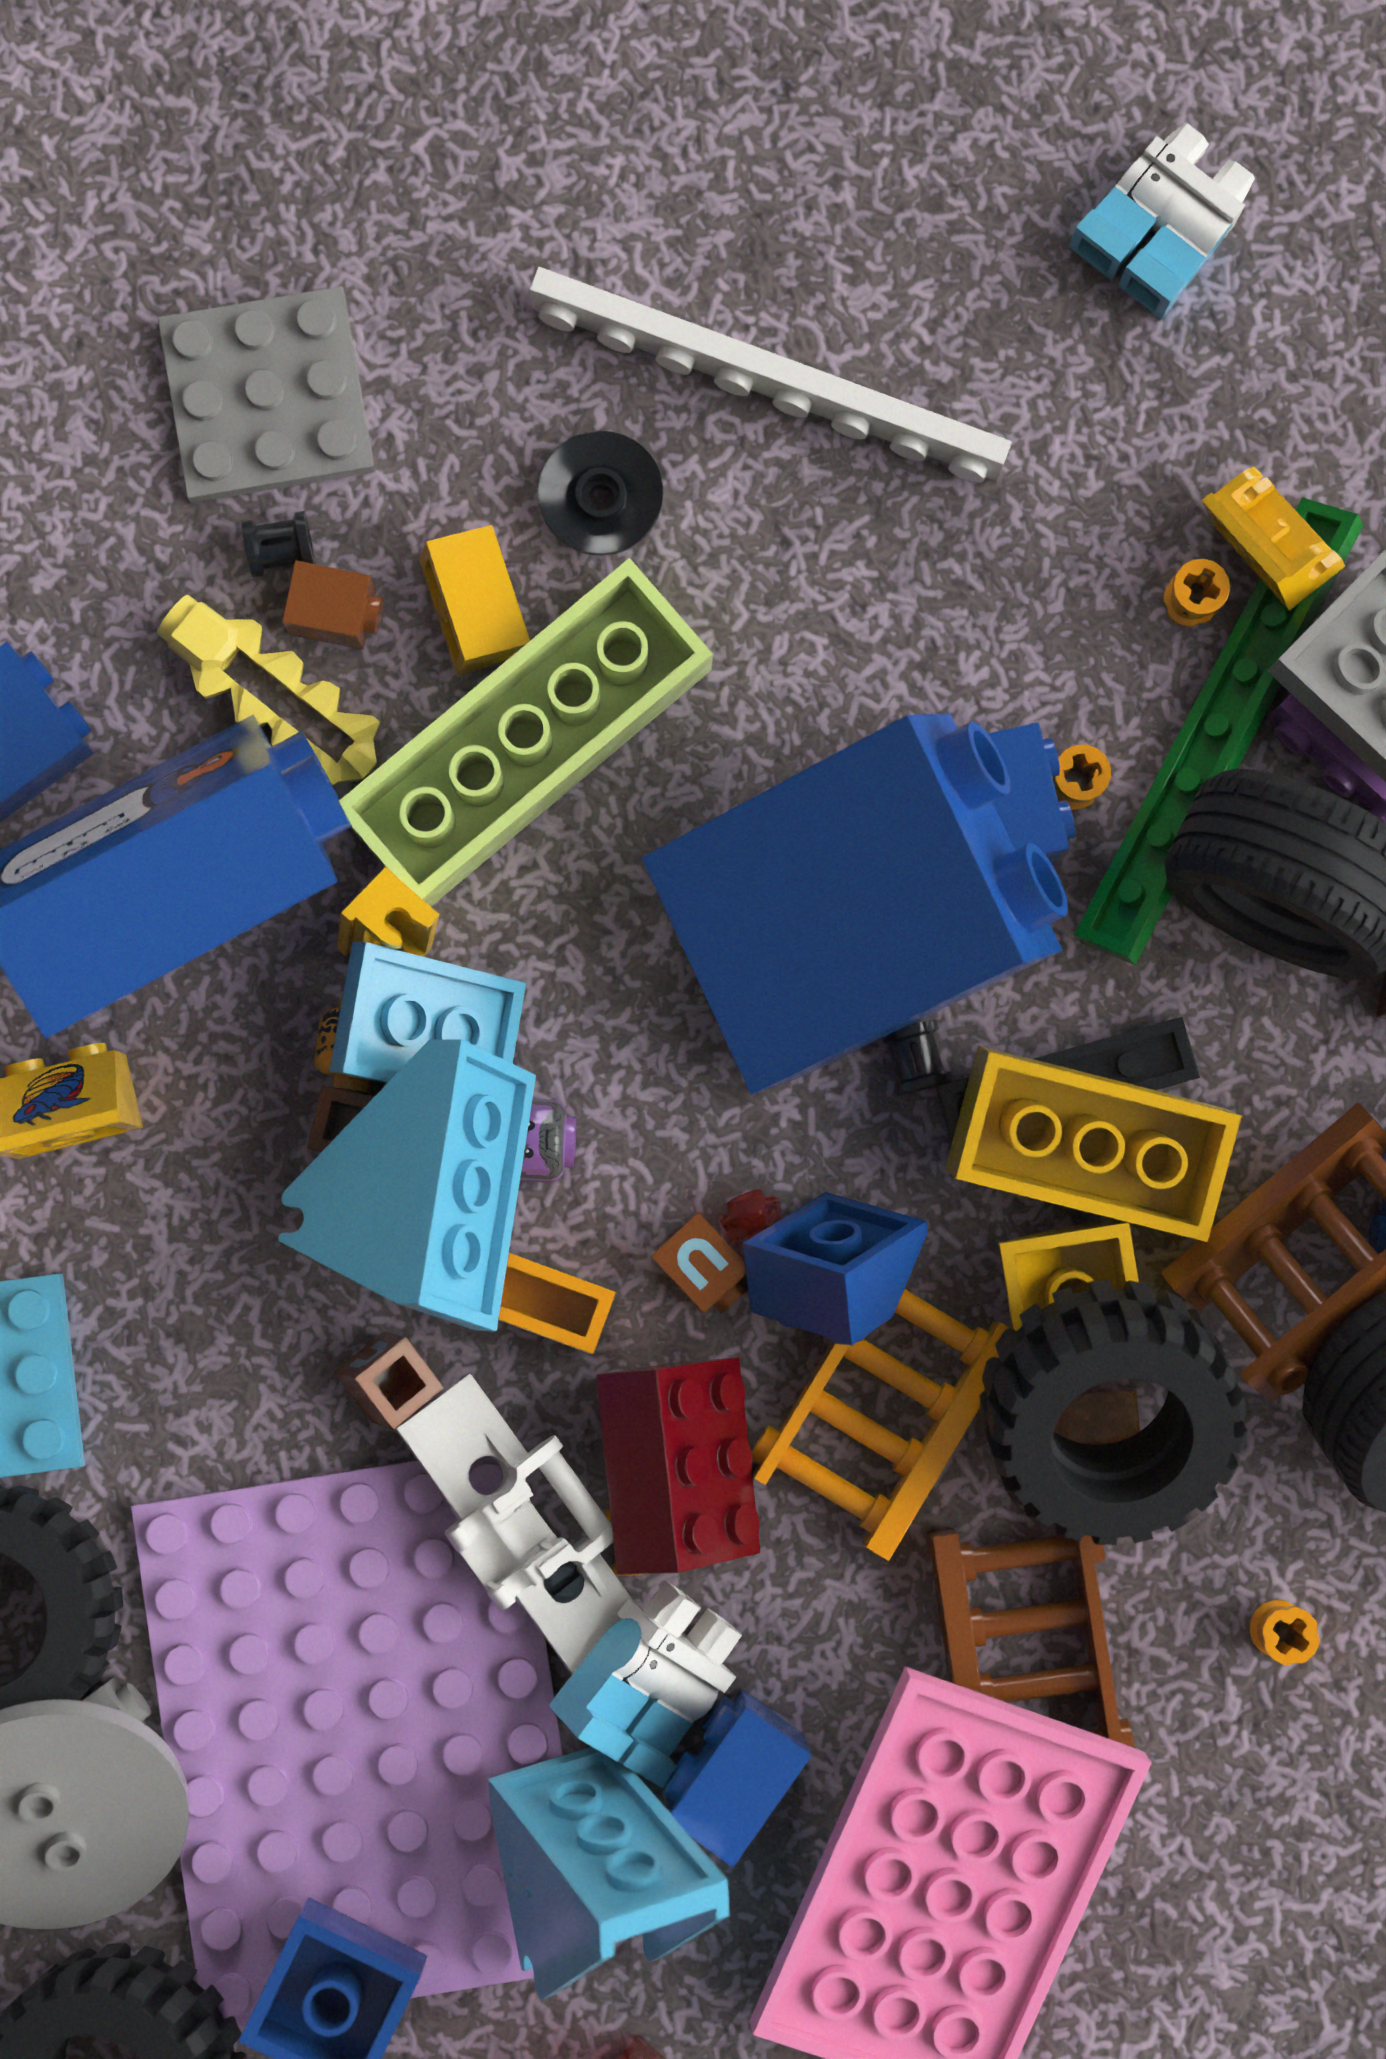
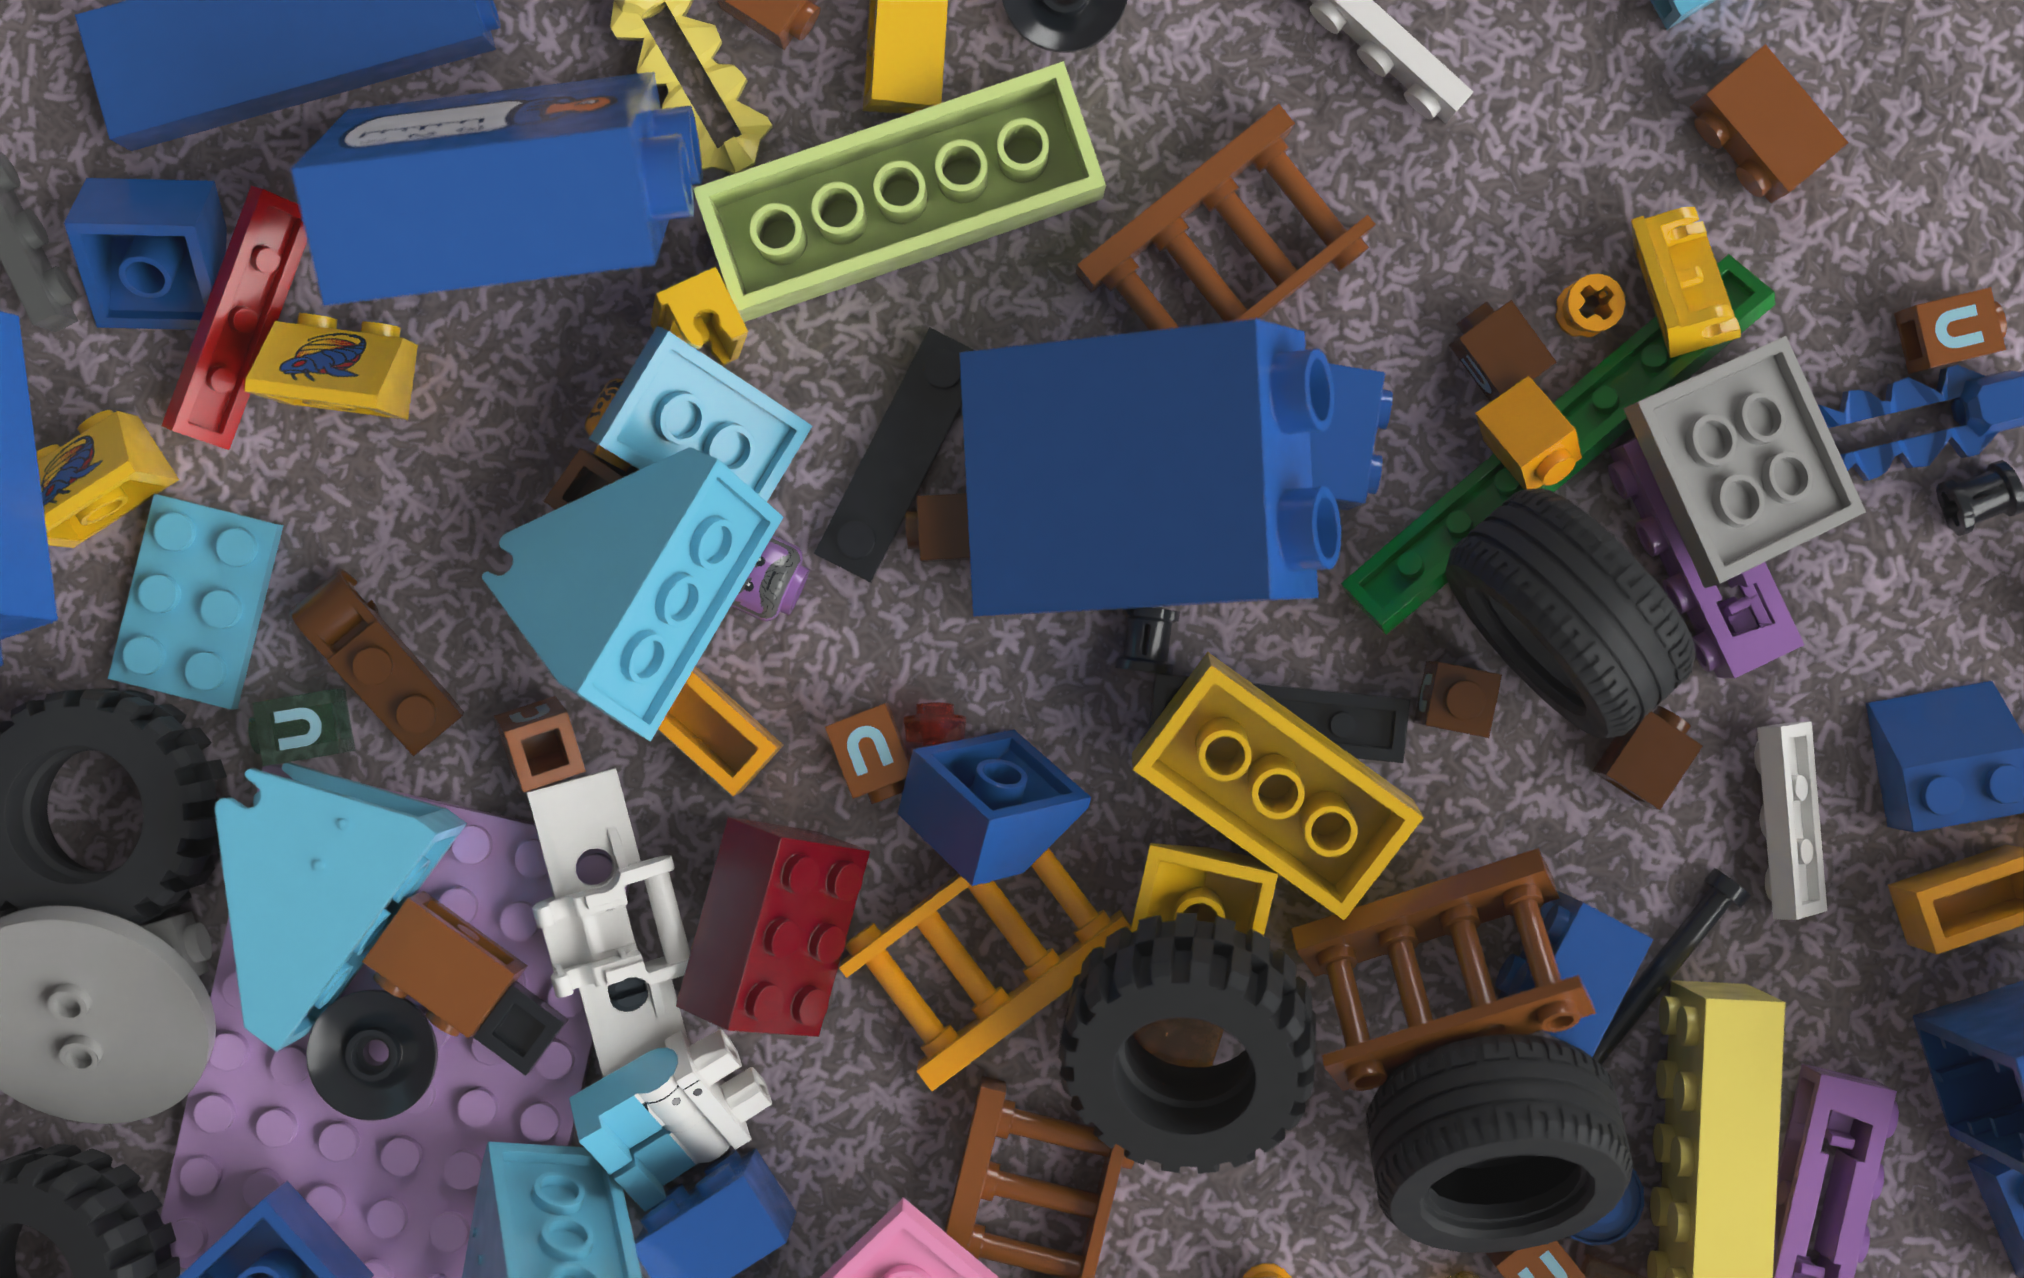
camera: 30 degrees right, 5 degrees up
(154, 1456) = (301, 727): none -> clear green brick
(202, 1367) = (375, 662): none -> reddish brown plate
(234, 1596) = (316, 885): none -> medium azure ladder
(338, 1773) = (348, 1074): none -> black dish
(380, 1627) = (442, 965): none -> dark orange brick
(476, 1657) = (520, 1028): none -> black plate
(617, 982) = (897, 459): none -> black plate
(685, 1029) = (939, 527): none -> reddish brown brick
(812, 620) = (1215, 189): none -> dark orange fence
(1087, 760) = (1420, 424): light orange bush -> none
(1132, 665) = (1500, 348): none -> reddish brown brick
(1191, 730) = (1529, 435): none -> light orange brick
(1225, 997) = (1457, 698): none -> reddish brown brick
(1288, 370) = (1767, 126): none -> dark orange brick

